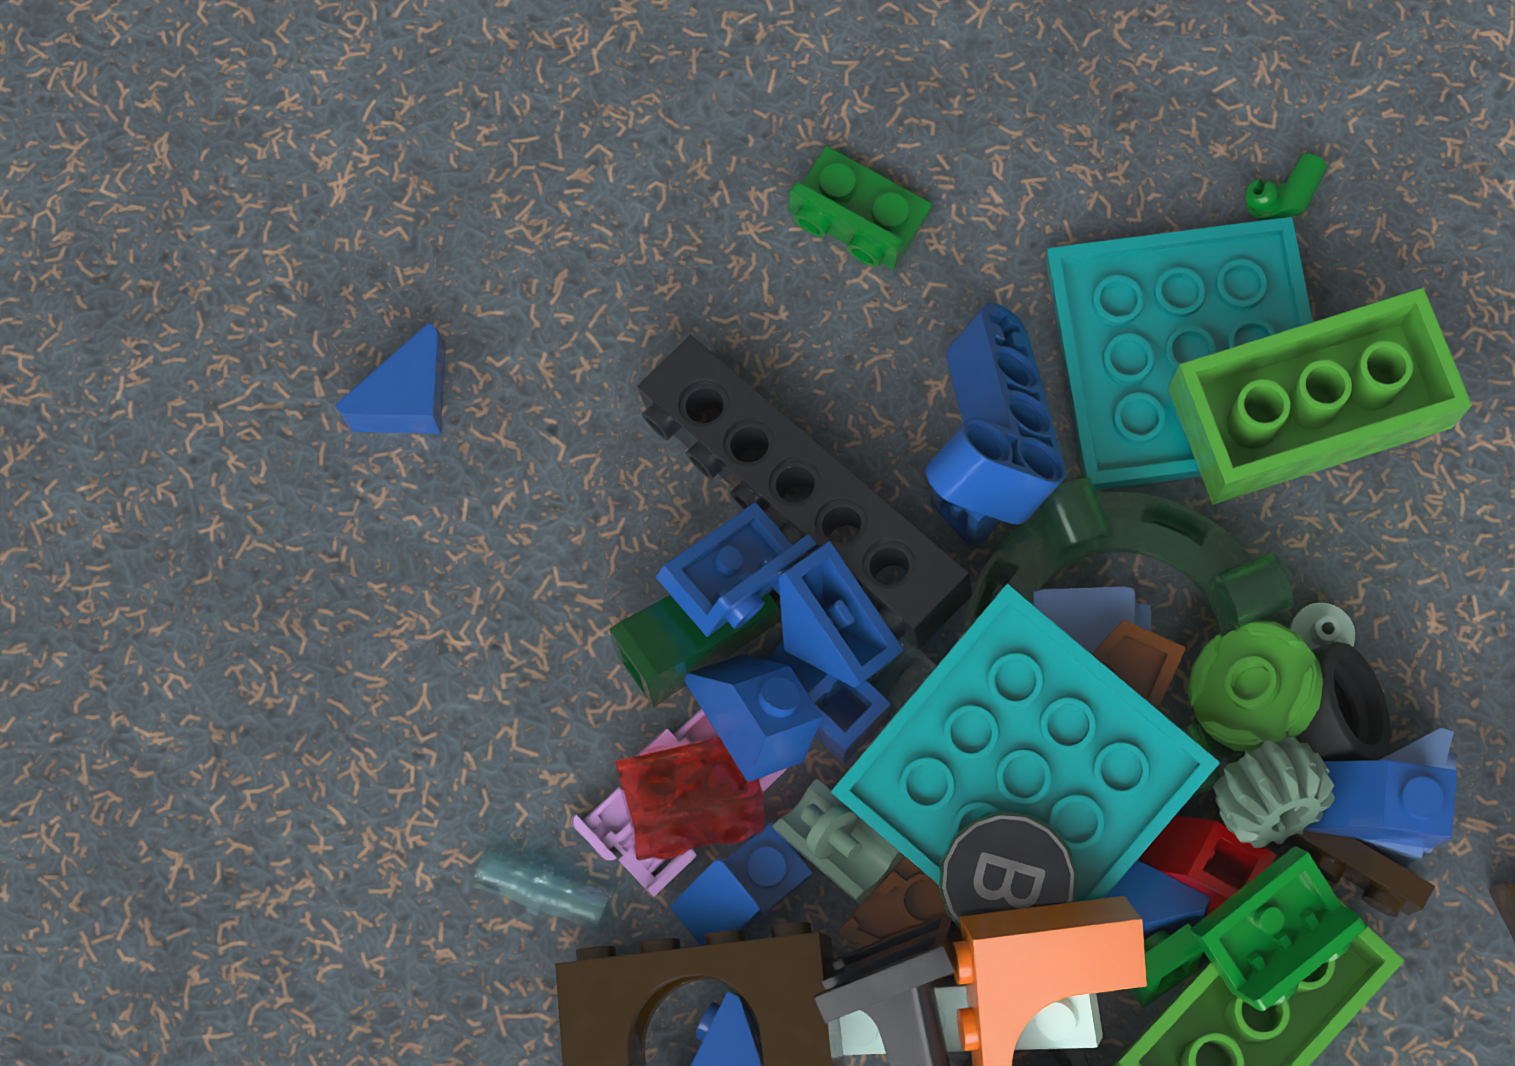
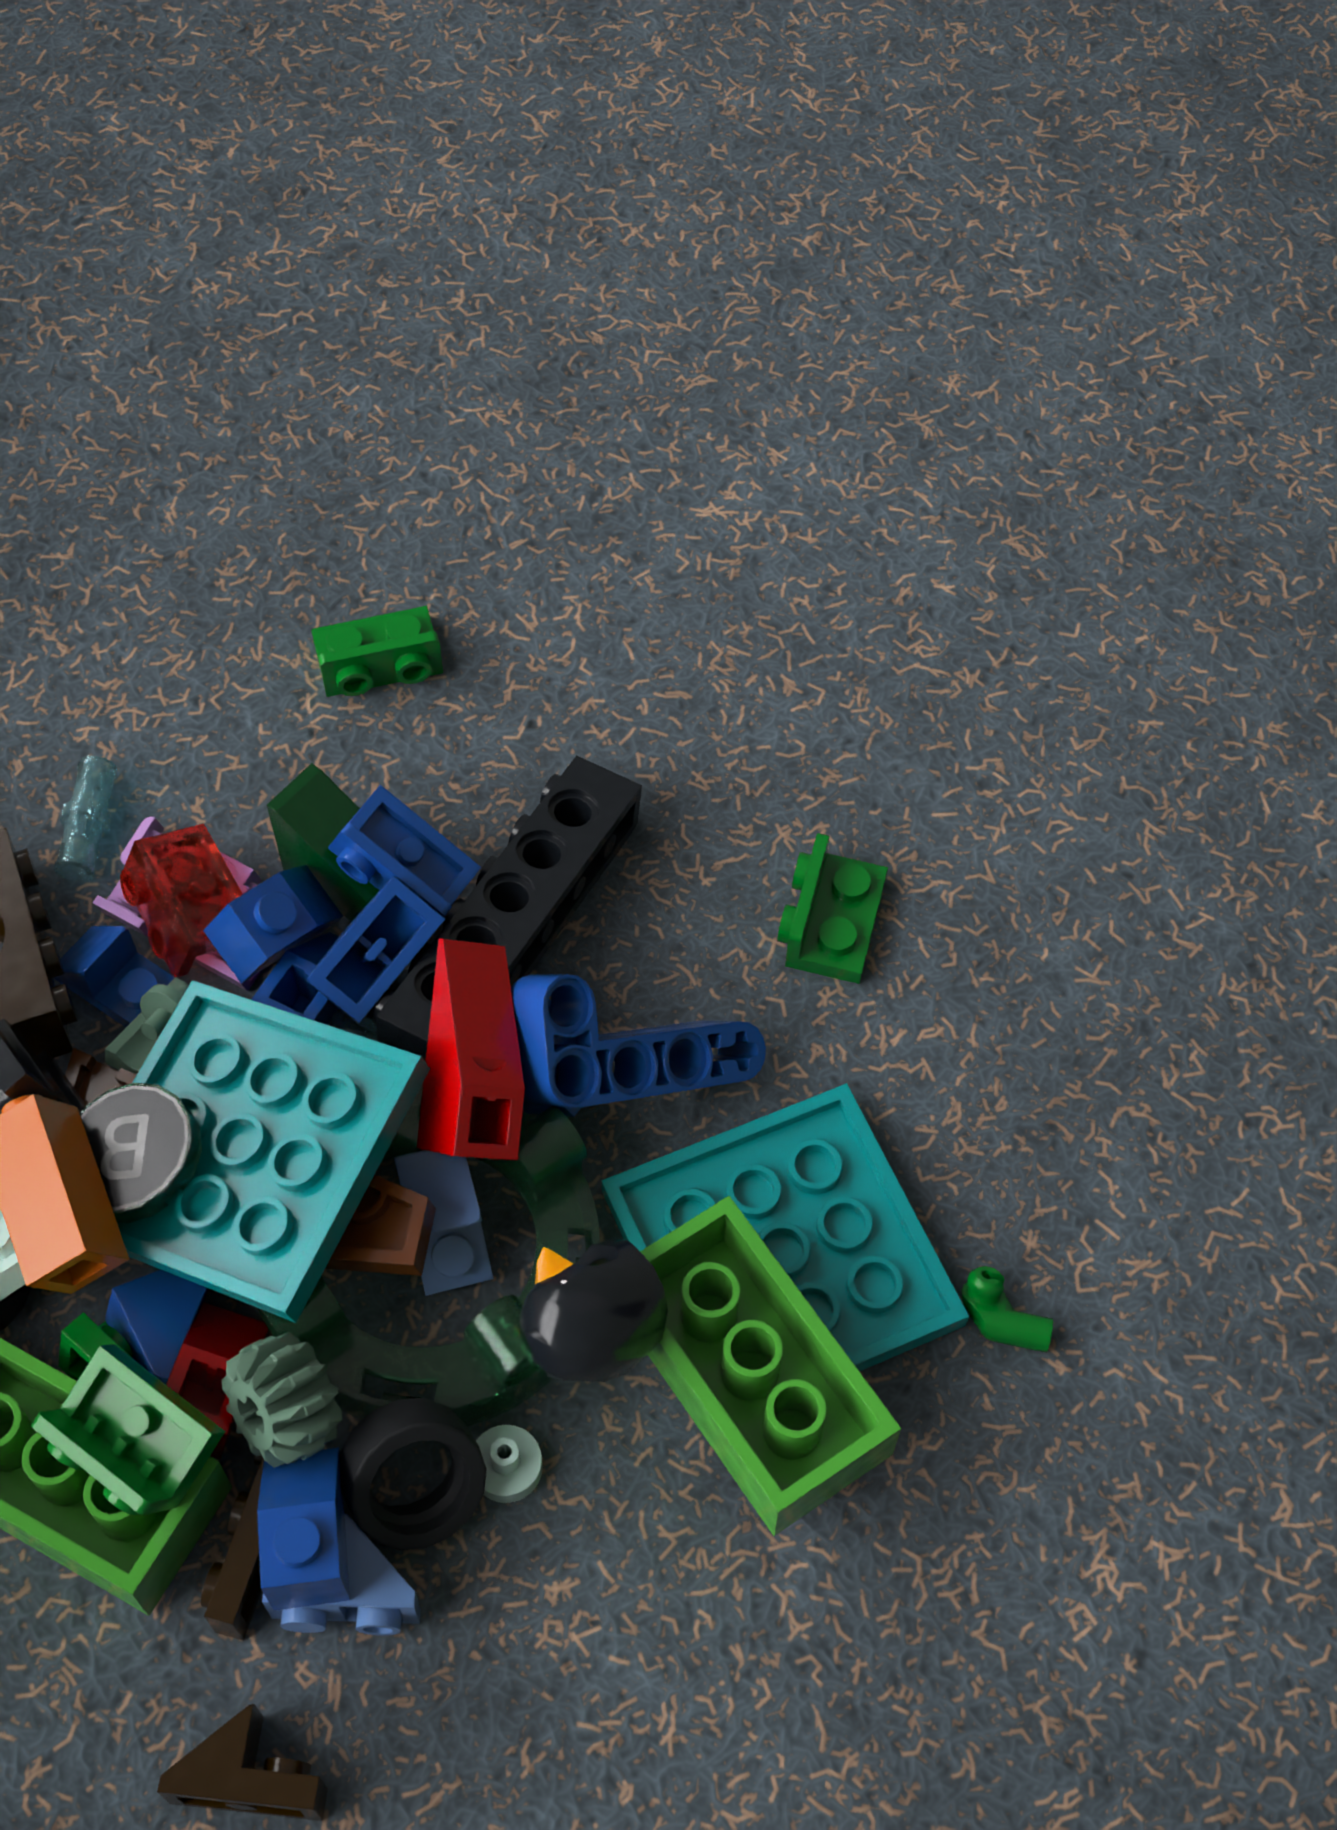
camera: 70 degrees right, 15 degrees down
(402, 391) = (530, 594): blue slope -> none
(420, 556) = (377, 651): none -> green bracket
(1001, 543) = (473, 1056): none -> red slope
(1255, 686) = (403, 1367): bright green tile -> none
(1289, 510) = (594, 1317): none -> black piece

